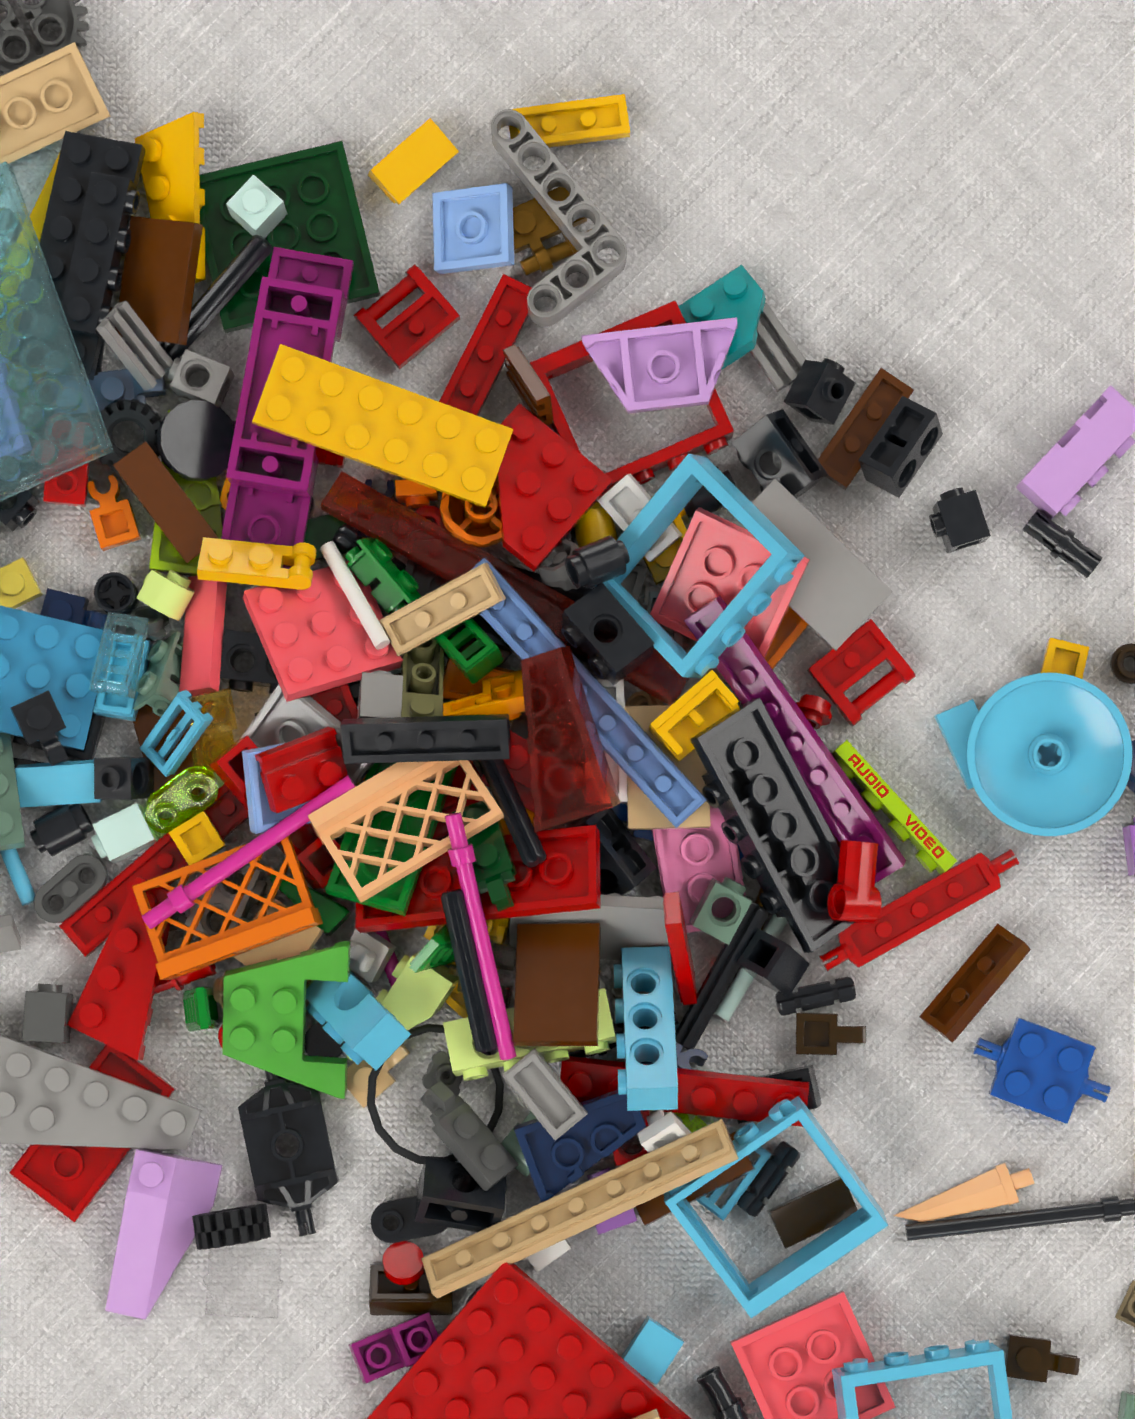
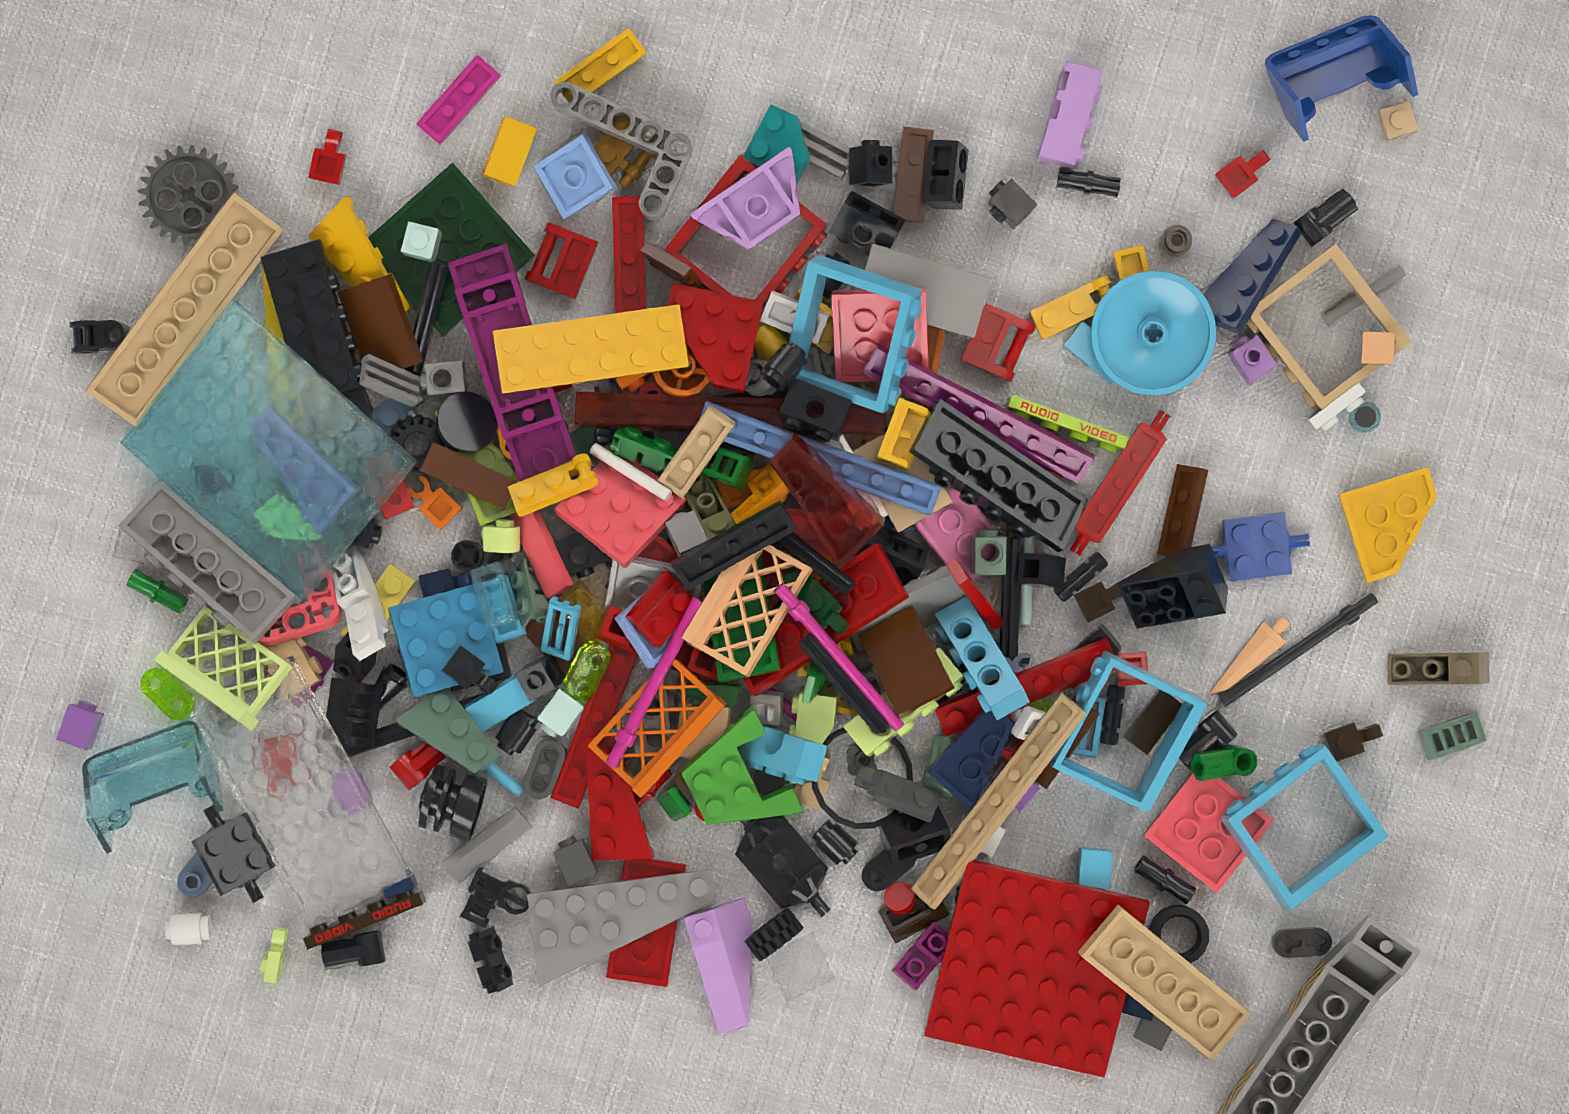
camera: 30 degrees left, 5 degrees up
(197, 838) = (612, 691): yellow plate -> none
(201, 69) = (328, 164): none -> red plate
(362, 1156) = (835, 842): none -> black brick
(388, 76) = (458, 100): none -> dark pink tile
(544, 1094) = (936, 738): light grey tile -> none
(815, 710) = (980, 385): red plate -> none
(832, 1127) = (1136, 658): none -> red tile
(855, 893) = (1072, 496): red piece -> none
(870, 1306) = (1223, 763): none -> green piece
(872, 1266) = (1210, 735): none -> black piece
(921, 1068) = (1176, 588): none -> black slope
(963, 676) = (1068, 308): none -> yellow plate

